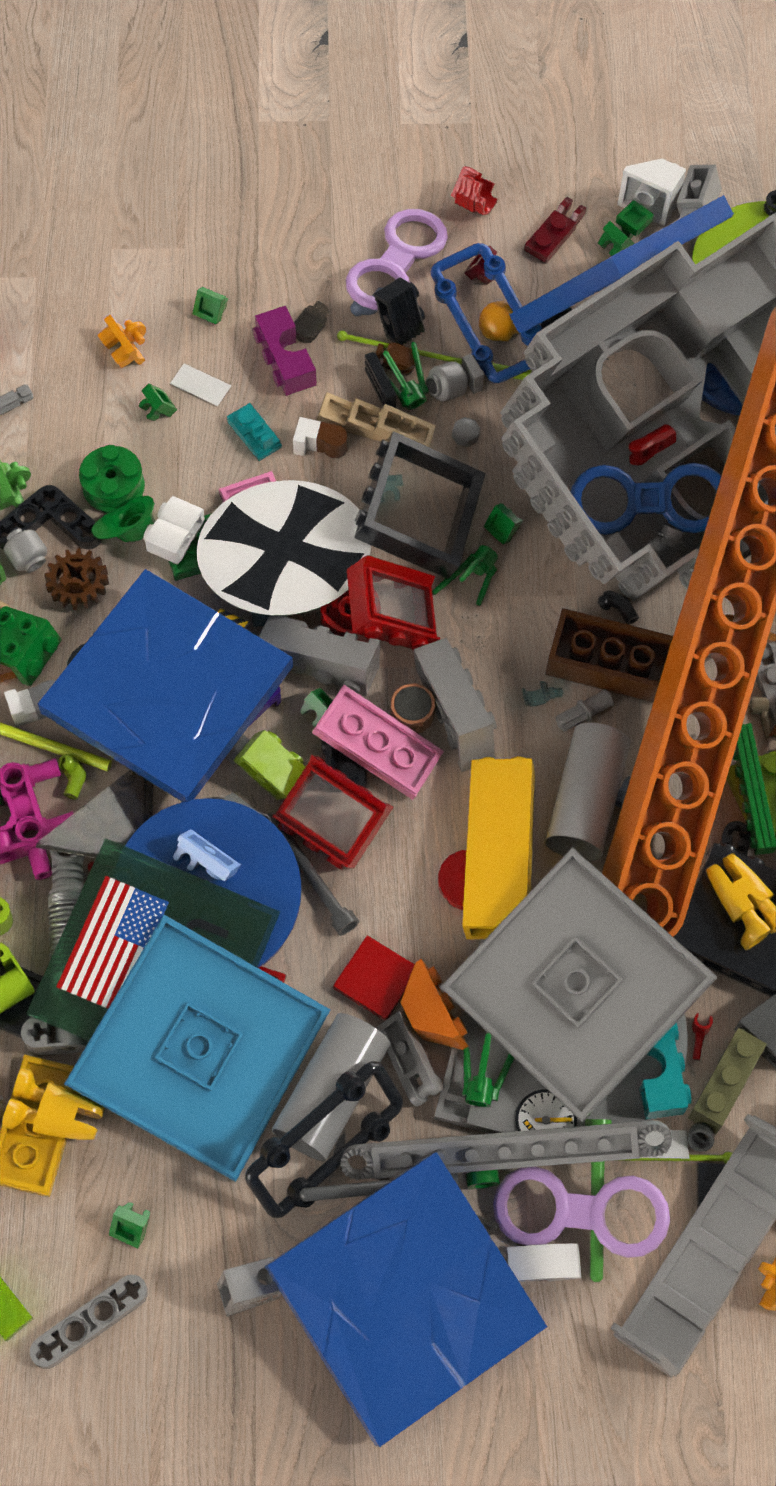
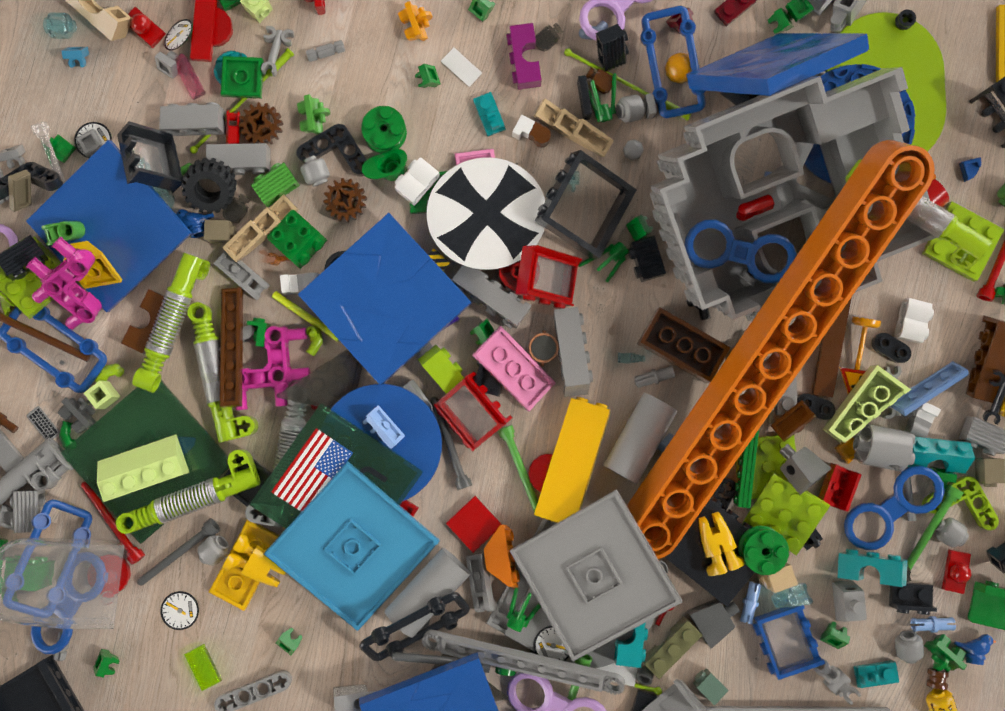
camera: 10 degrees right, 20 degrees up
(391, 837) = (507, 434): none -> bright green piece
(526, 559) = (647, 259): none -> black brick

